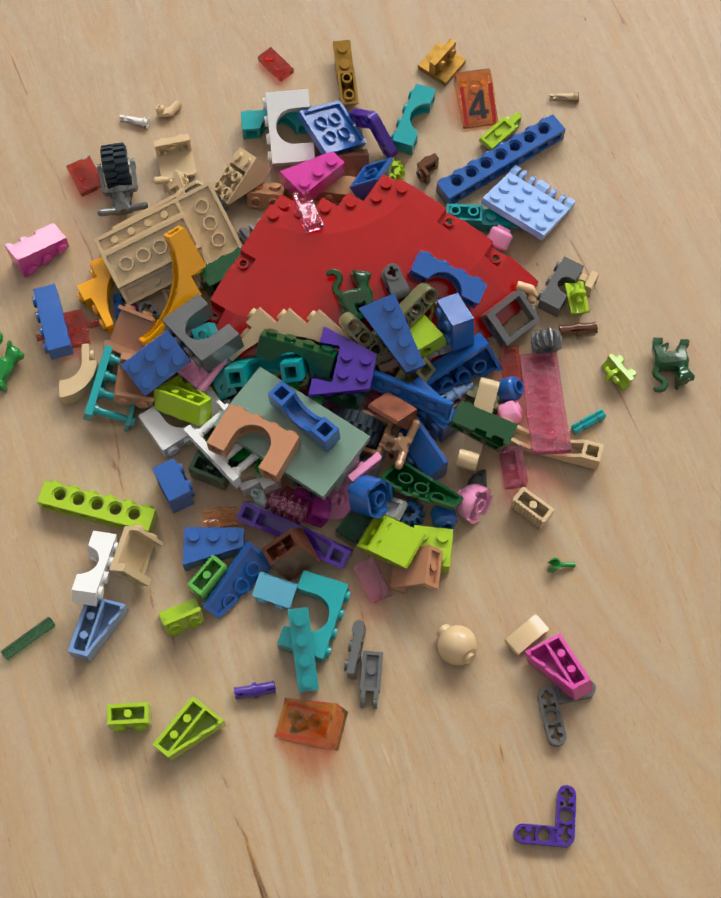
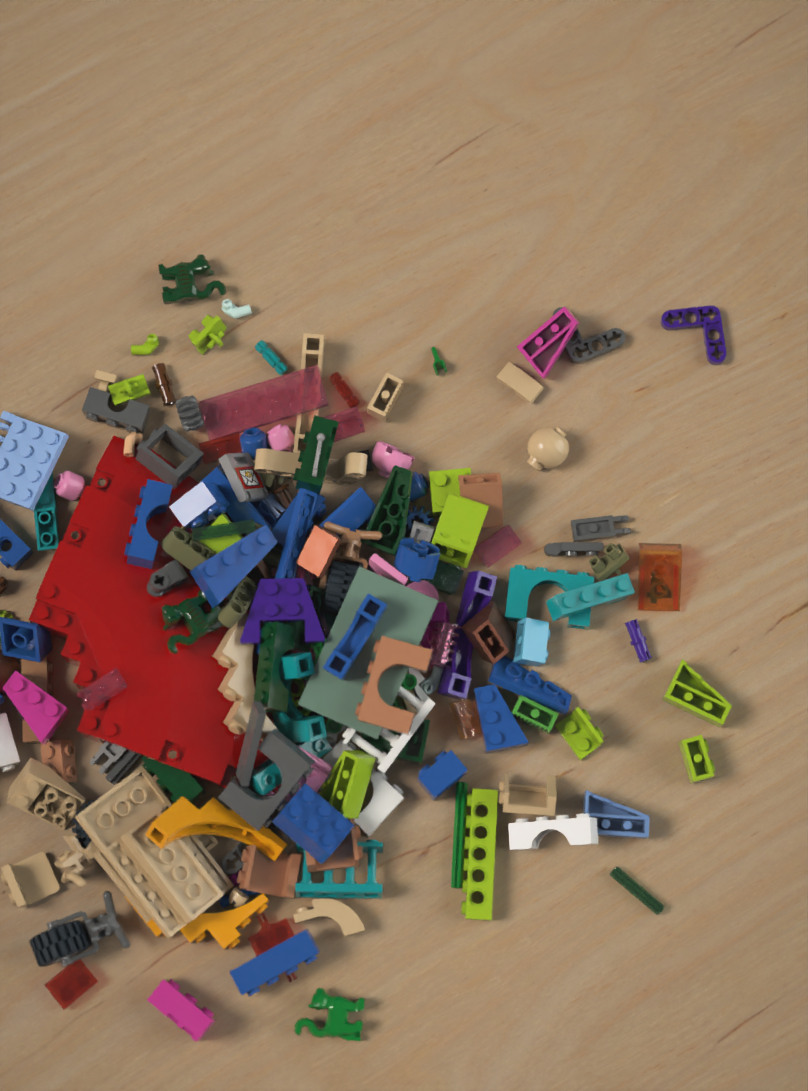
camera: 105 degrees left, 10 degrees up
(115, 301) = (238, 897): none -> tan hinge
(159, 505) = (459, 835): none -> green axle
(234, 320) = (251, 743): none -> dark grey tile
(333, 679) = (609, 563): none -> olive hips
(427, 333) = (223, 530): none -> clear green axle
(473, 365) = (244, 480): none -> light grey container
(496, 425) = (320, 437): none -> light grey hinge
(546, 477) = (344, 390): none -> clear red axle
(614, 322) = (148, 347): none -> lime arm
(637, 398) = (234, 311): none -> light aqua arm

